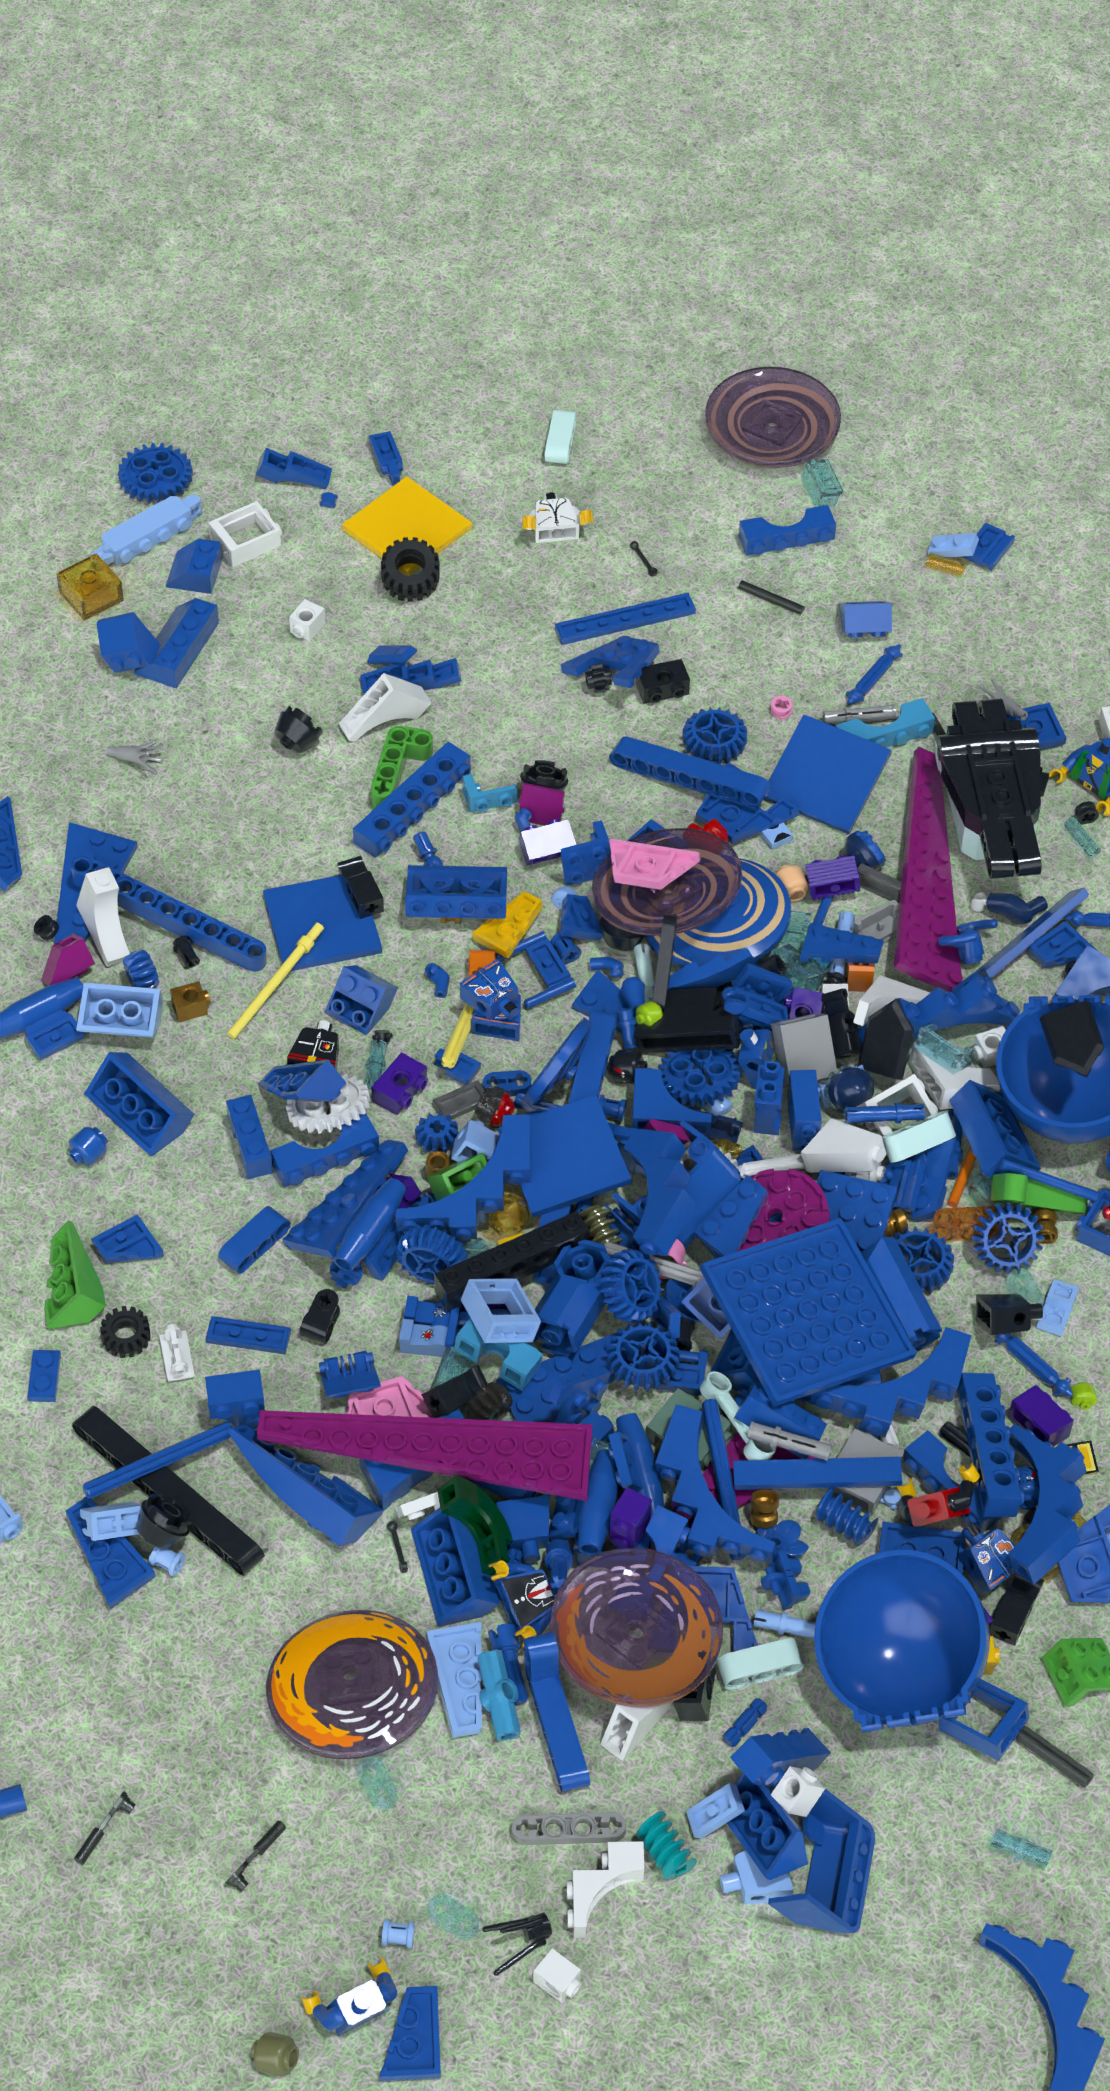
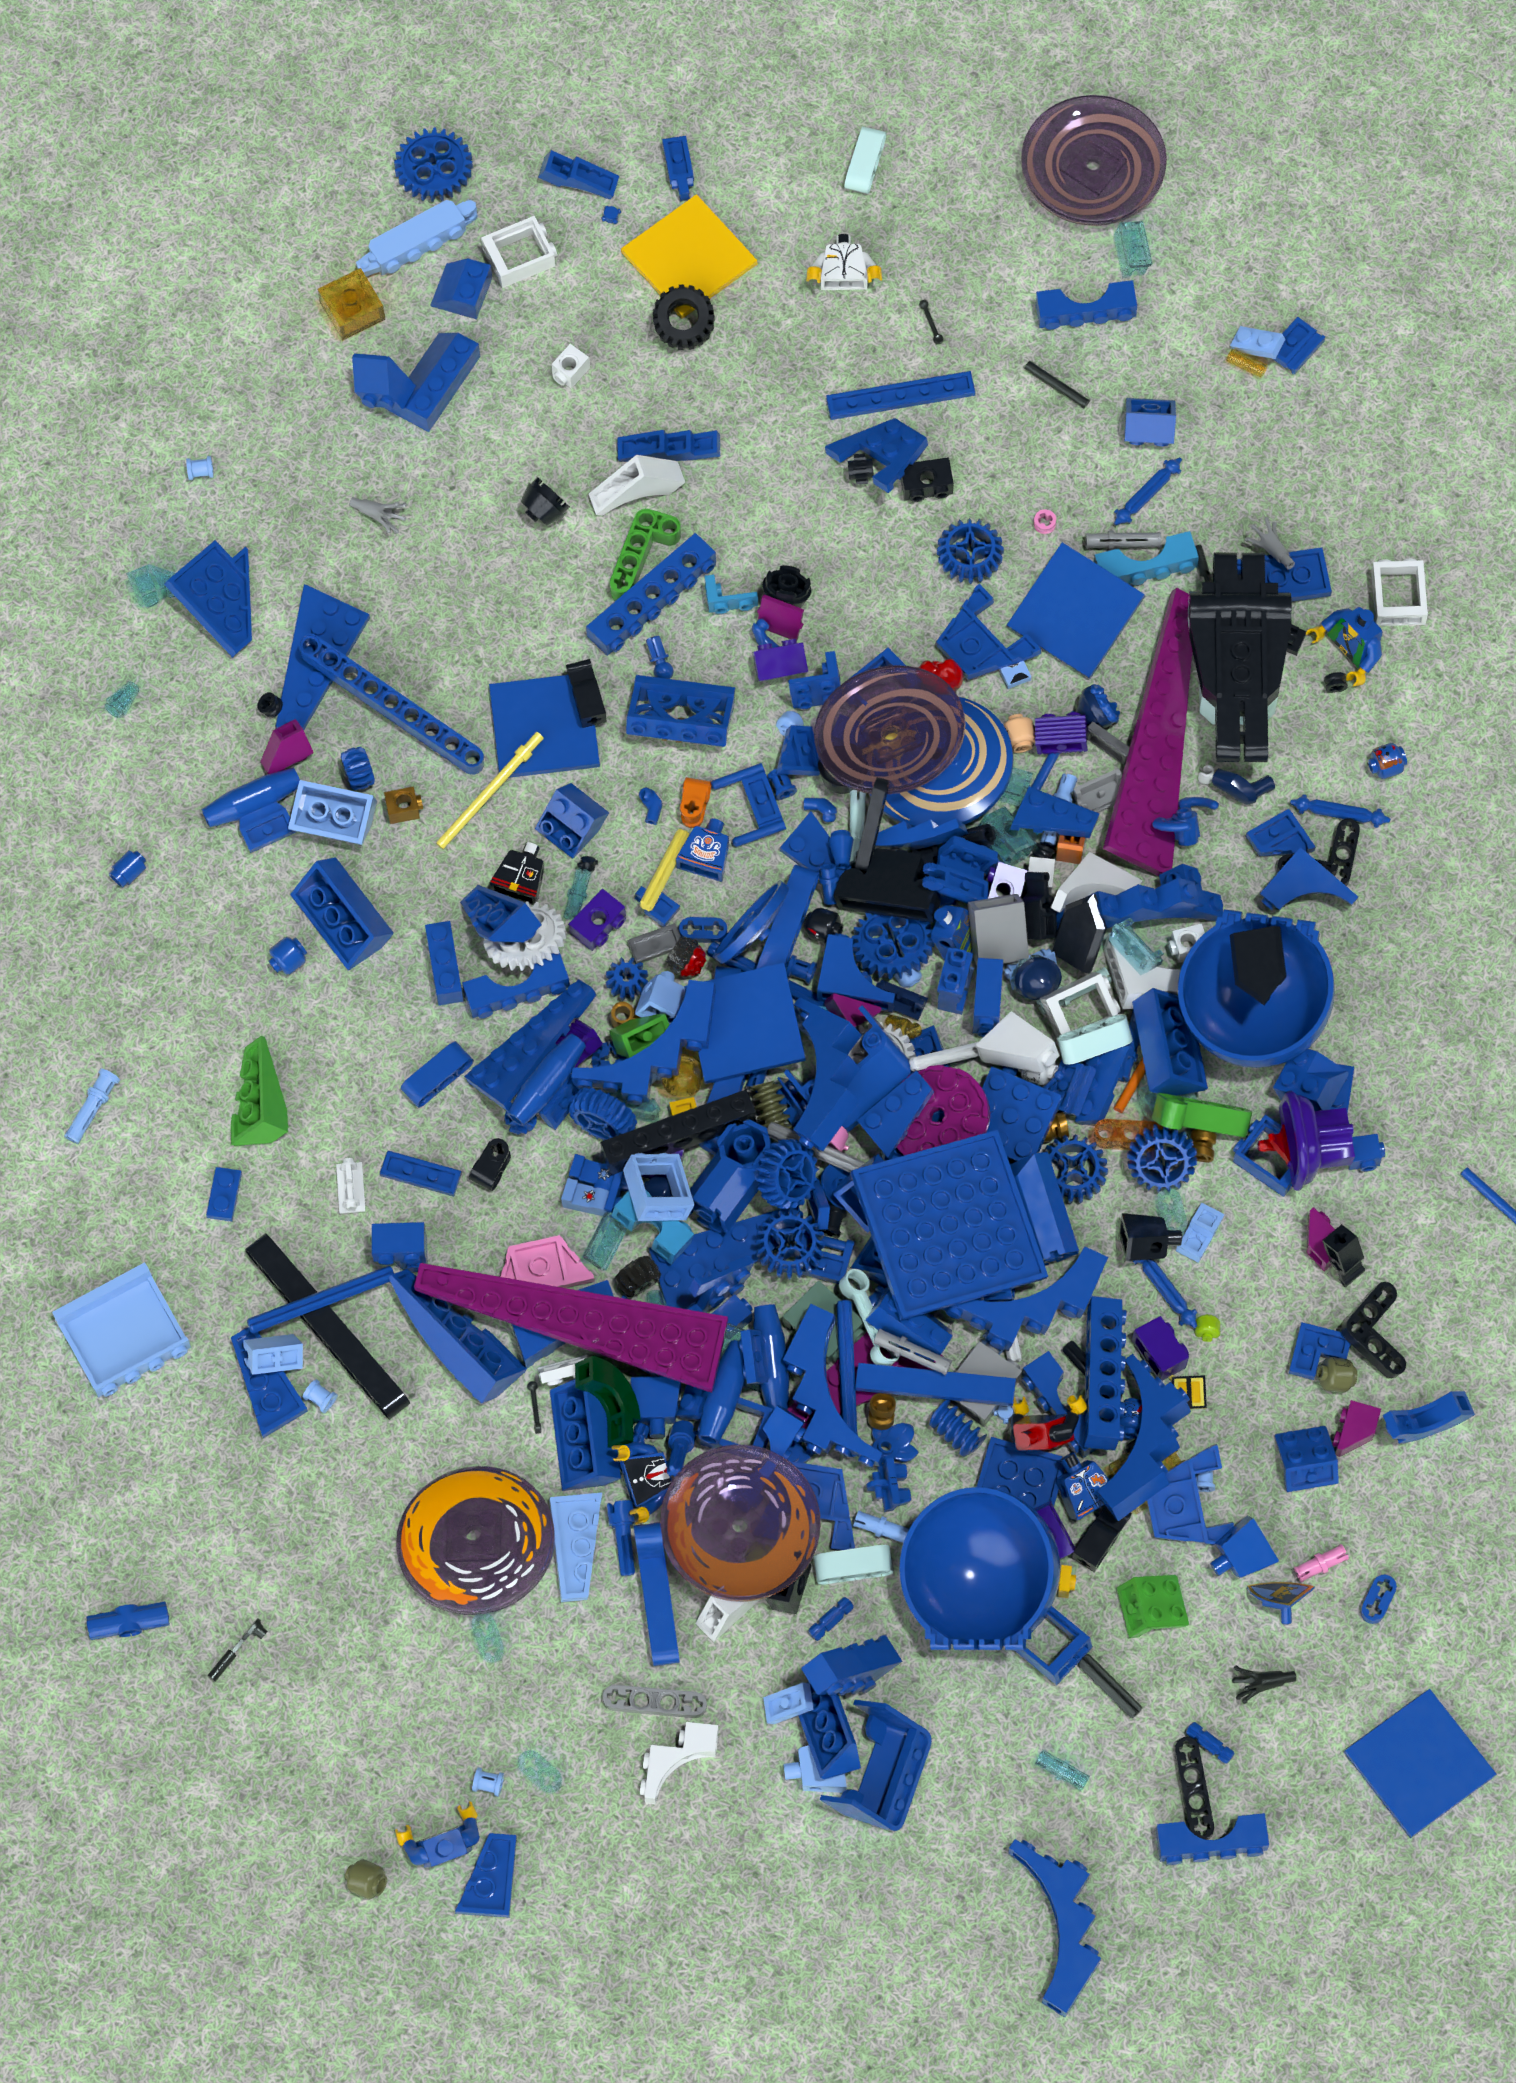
camera: 10 degrees right, 15 degrees up
(100, 913) = (323, 695): white arch -> none
(125, 1345) = (297, 1145): black tyre -> none
(127, 1242) = (315, 1063): blue wing -> none
(162, 1521) = (318, 1363): black cone -> none
(183, 947) = (405, 747): black pin -> none
(237, 1879) = (350, 1712): pearl dark grey piece -> none
(349, 1379) = (510, 1232): blue hinge -> none
(391, 654) = (652, 419): blue tile -> none
(454, 1392) = (608, 1259): black piece -> none
(491, 992) = (698, 834): blue torso -> none
(499, 1695) = (608, 1567): dark azure piece -> none
(506, 933) = (723, 763): yellow wing -> none
(534, 1927) = (610, 1790): black plant -> none
(557, 1976) = (624, 1839): white brick -> none
(630, 1519) = (749, 1416): dark purple brick -> none
(648, 1013) = (851, 873): lime piece -> none
(649, 864) = (873, 710): bright pink wing -> none
(663, 1848) = (737, 1730): teal piece -> none
(689, 772) = (936, 594): blue beam -> none
(798, 1791) = (861, 1702): white brick -> none
(884, 1113) = (1063, 1014): blue pin -> none
(1032, 933) = (1251, 819): blue tile -> none
(1049, 1180) = (1210, 1105): blue bar -> none
(1082, 837) = (1326, 710): clear light blue axle -> none

